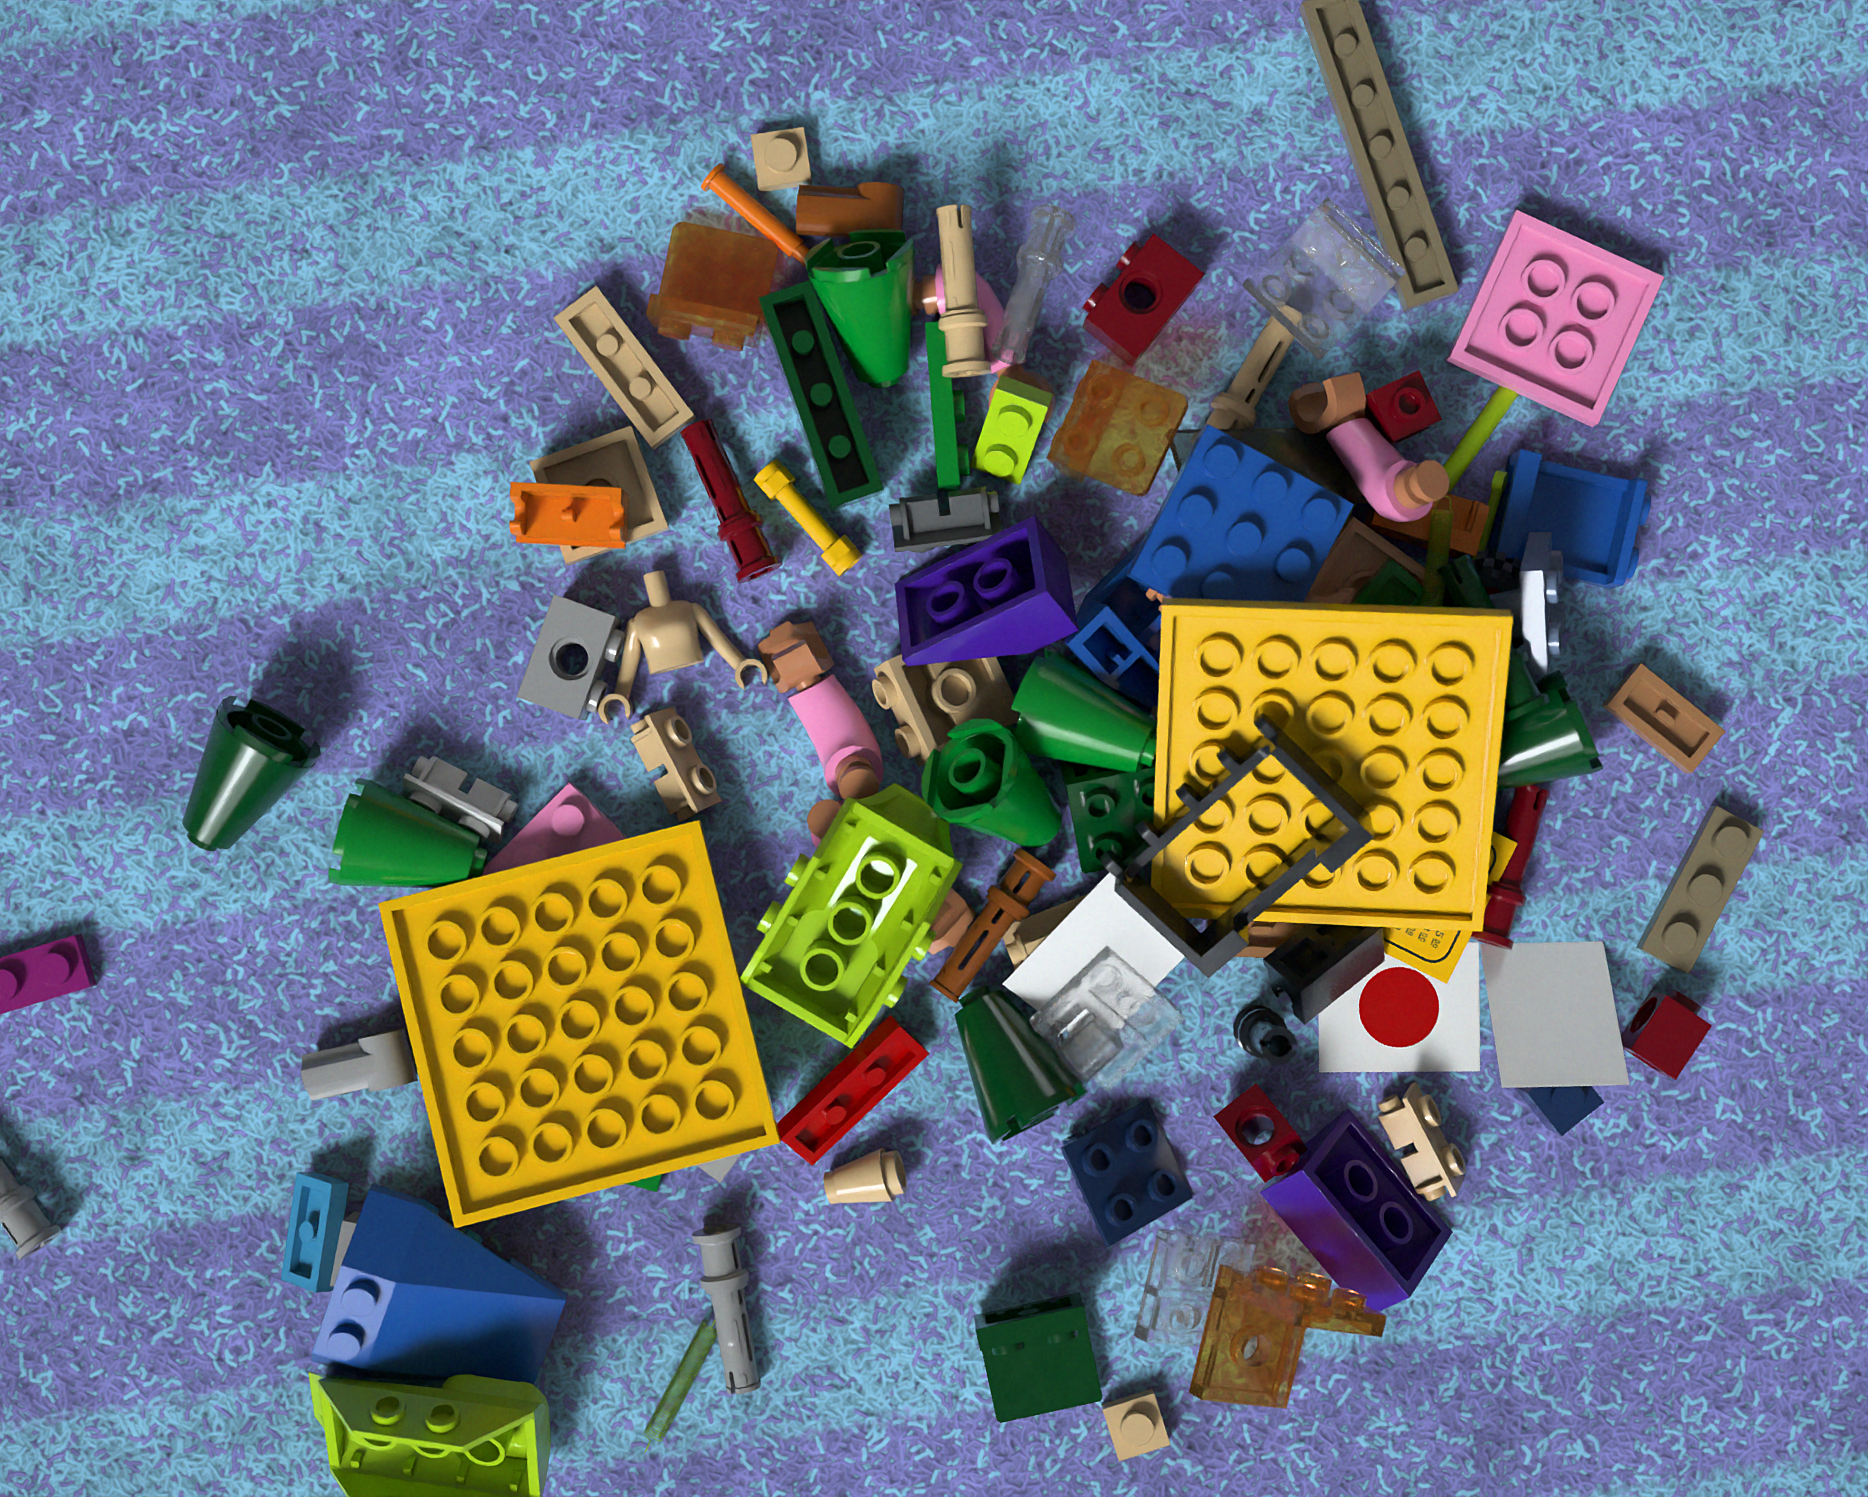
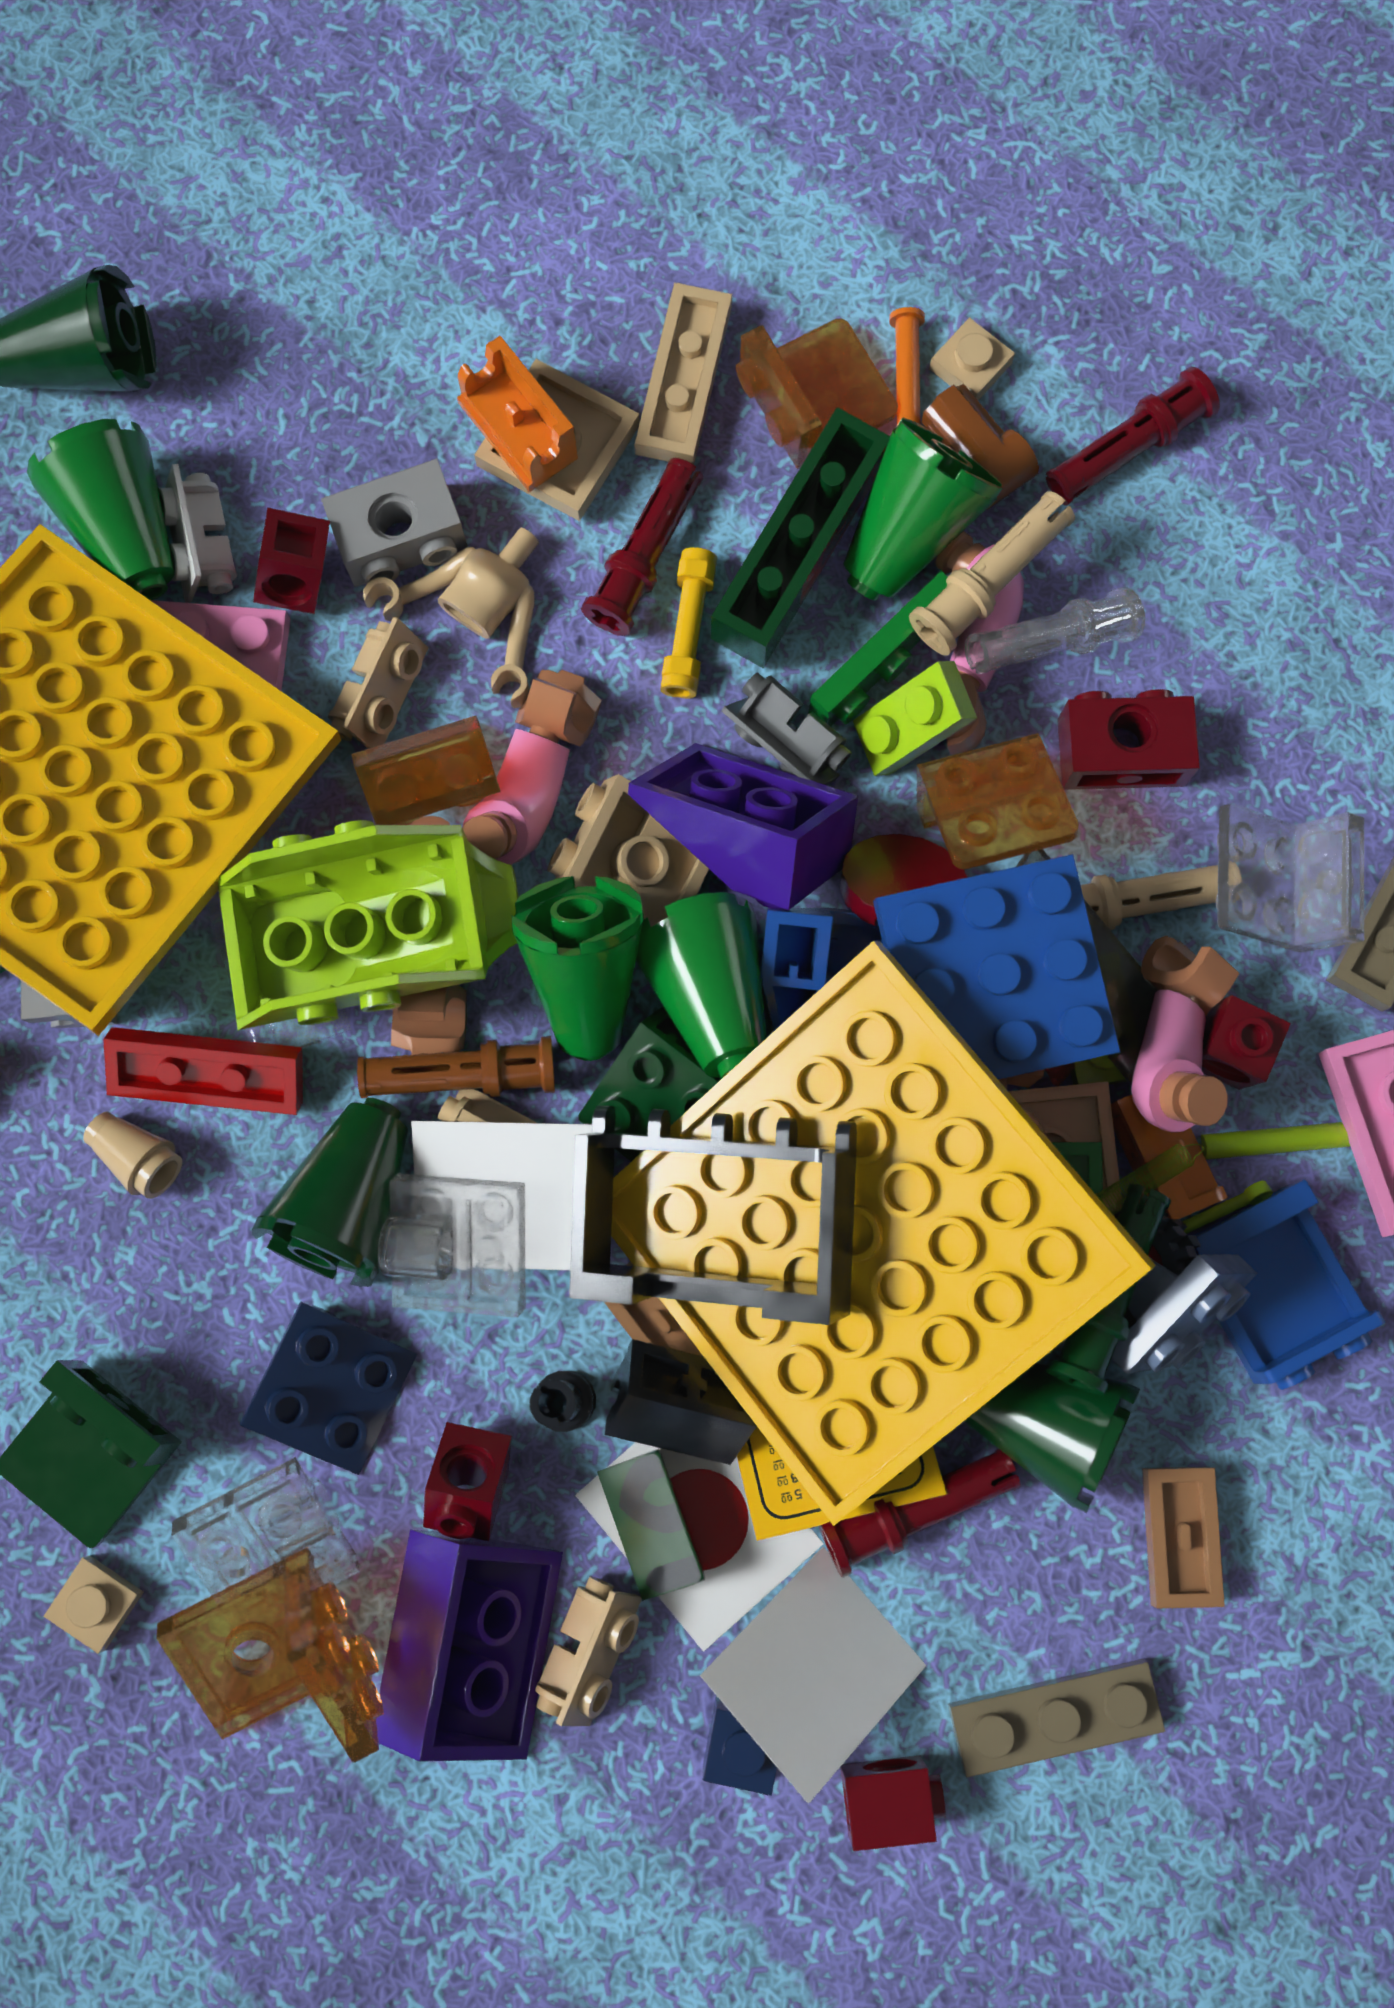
camera: 55 degrees right, 10 degrees down
(543, 752) = (291, 560): none -> dark red brick
(773, 782) = (426, 773): none -> clear orange bracket
(935, 77) = (1154, 423): none -> dark red pin
(1105, 533) = (892, 866): none -> dark red tile
(1379, 1040) = (651, 1525): none -> slope

